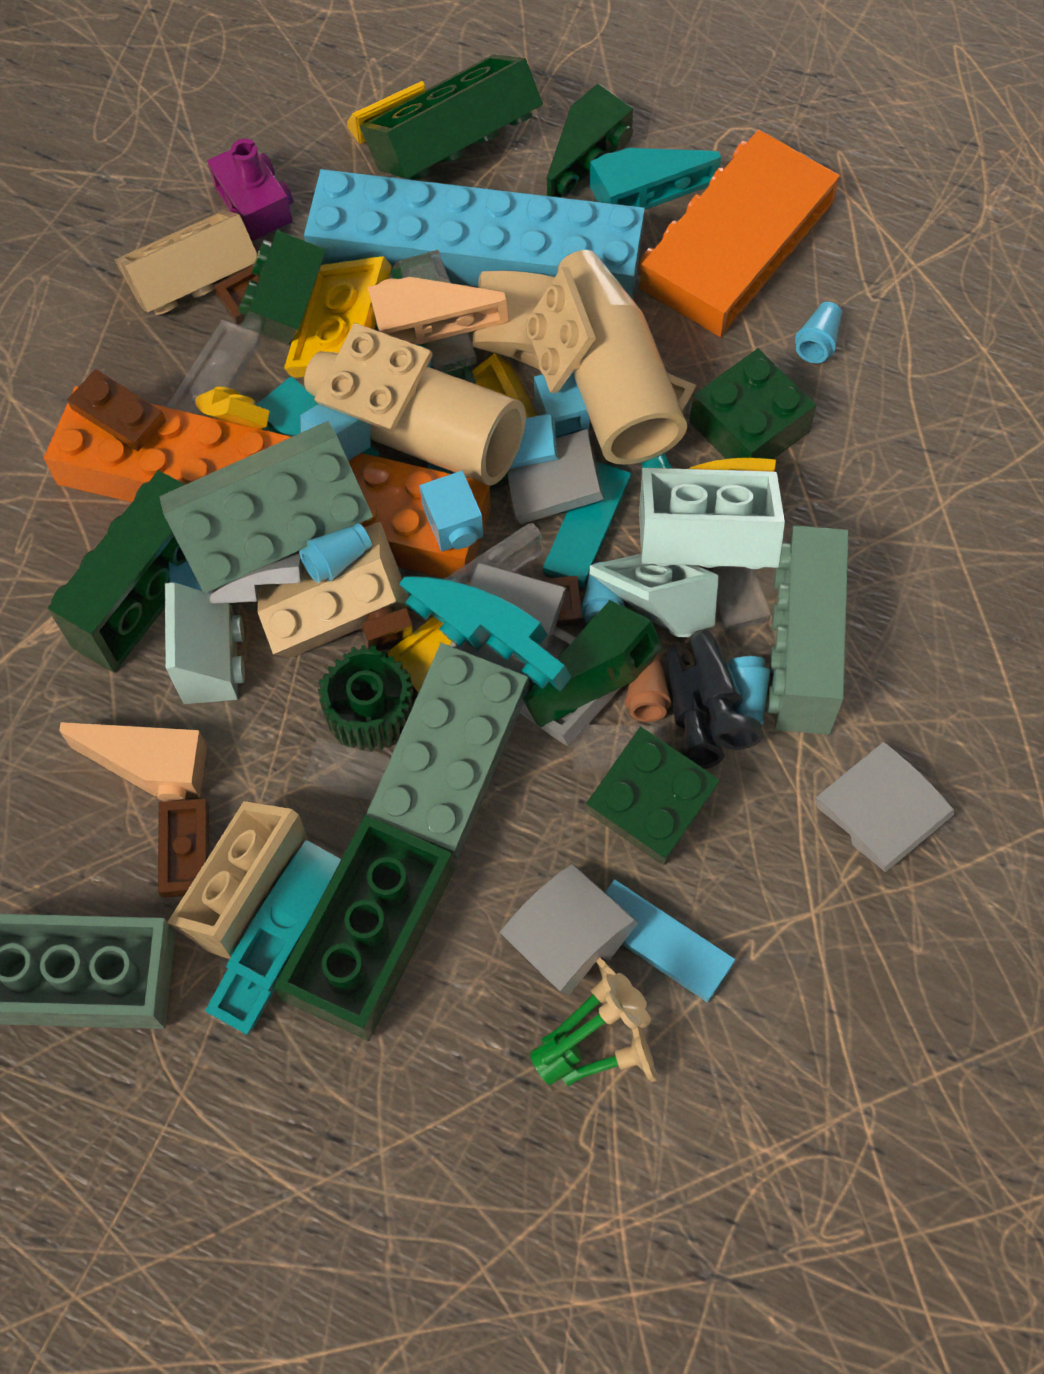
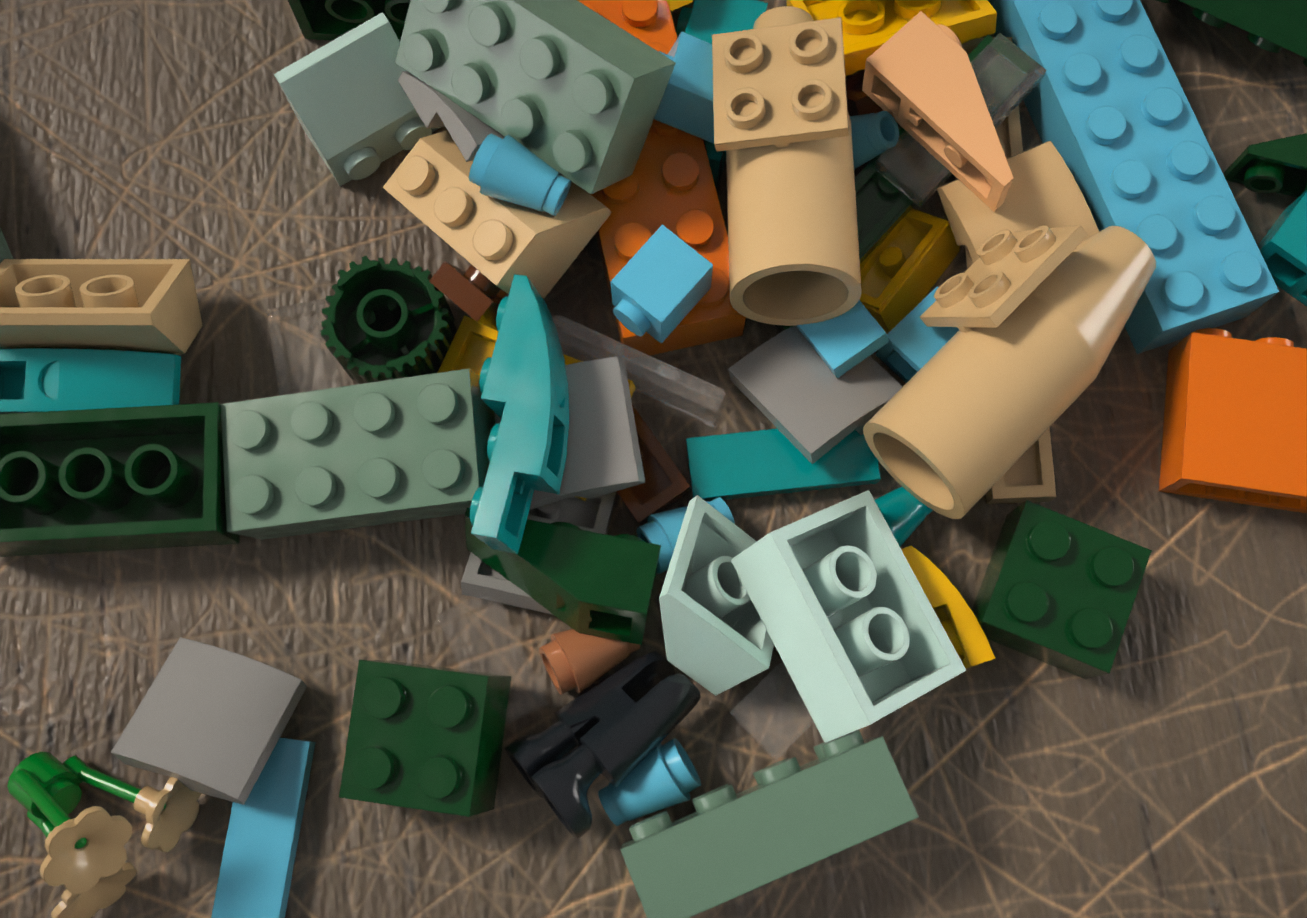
camera: 60 degrees right, 10 degrees up
(154, 759) = (200, 129): light nougat slope -> none
(181, 844) = (121, 223): reddish brown plate -> none
(819, 334) = (1240, 620): medium azure cone -> none

